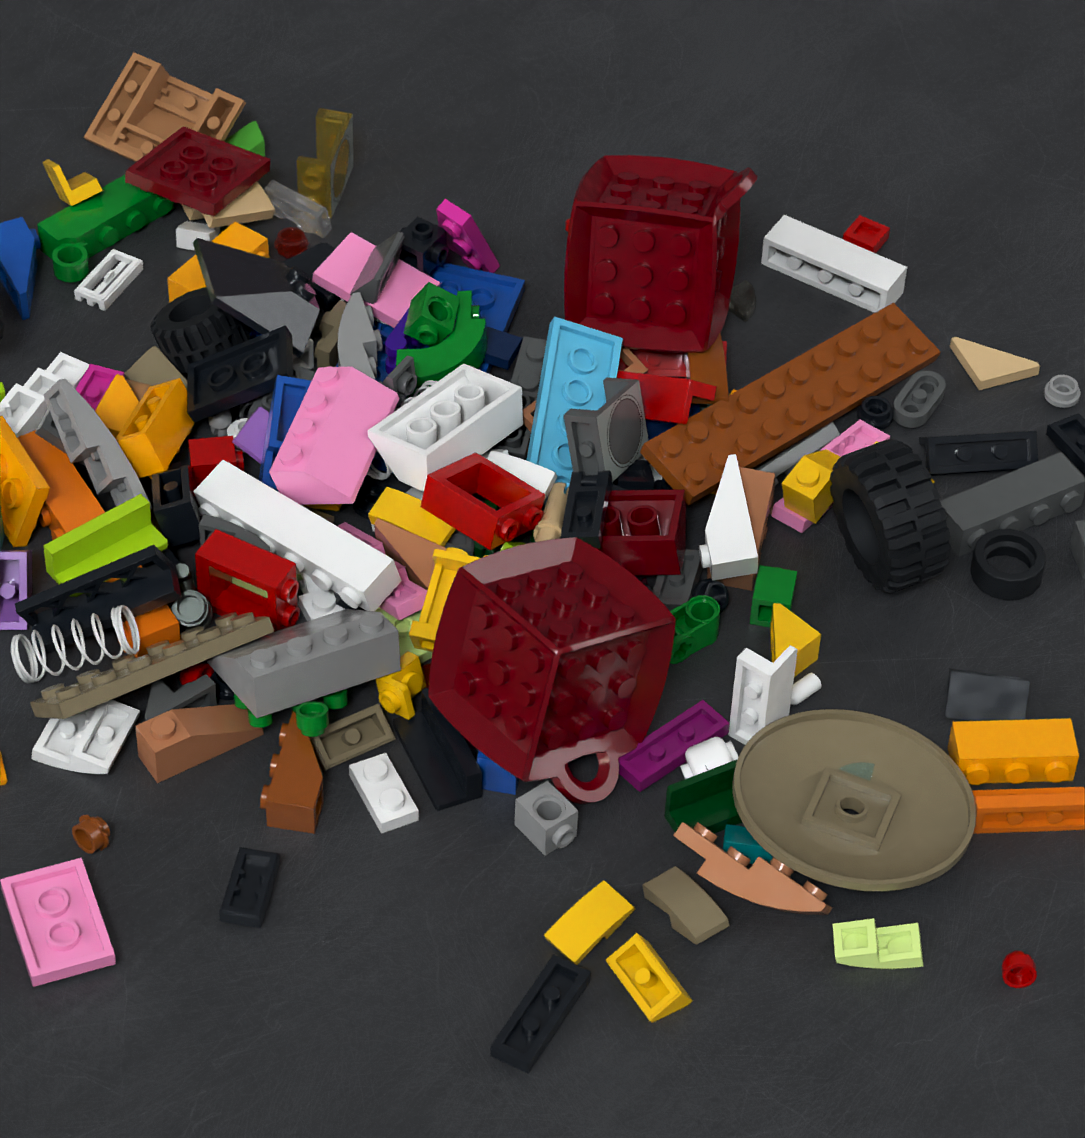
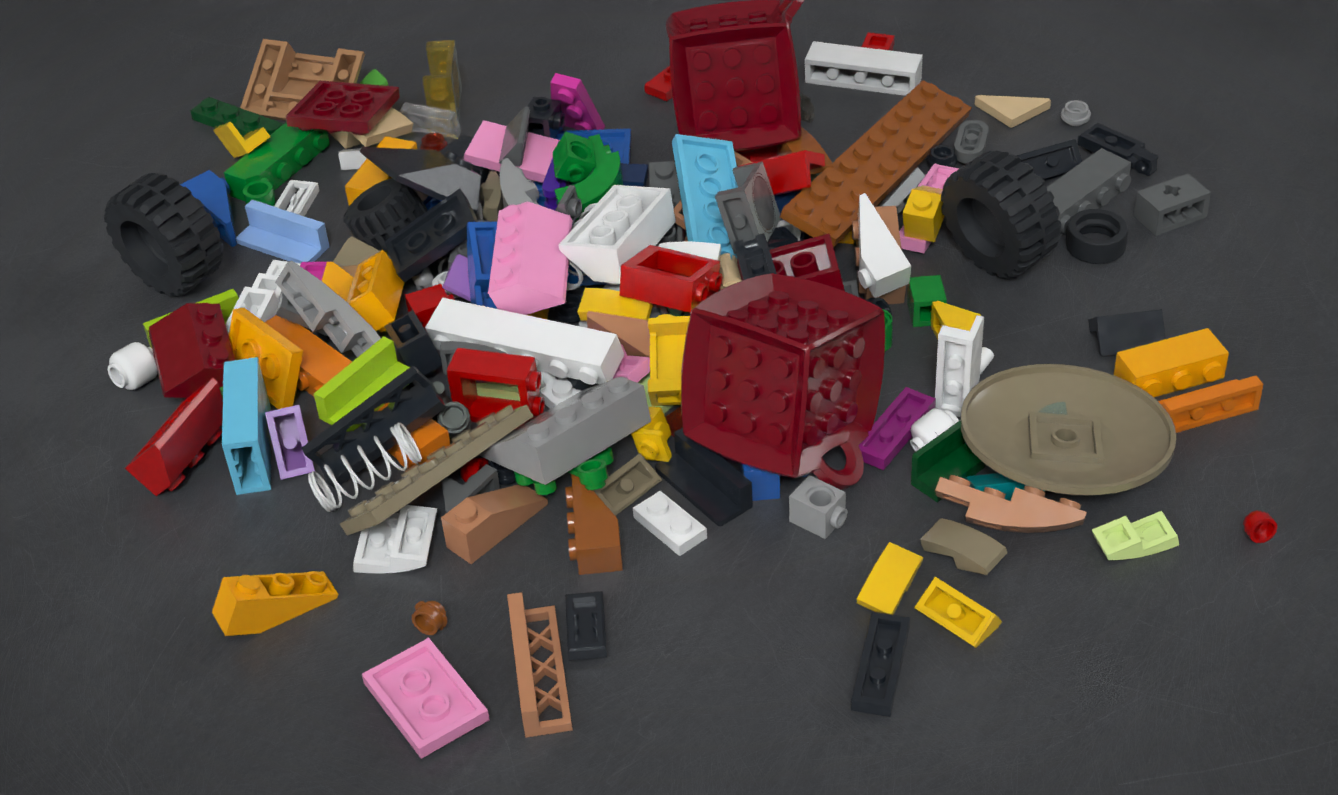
camera: 10 degrees left, 5 degrees down
(75, 147) = (216, 113): none -> dark green plate
(82, 321) = (283, 233): none -> light blue panel
(171, 911) = (525, 663): none -> nougat fence

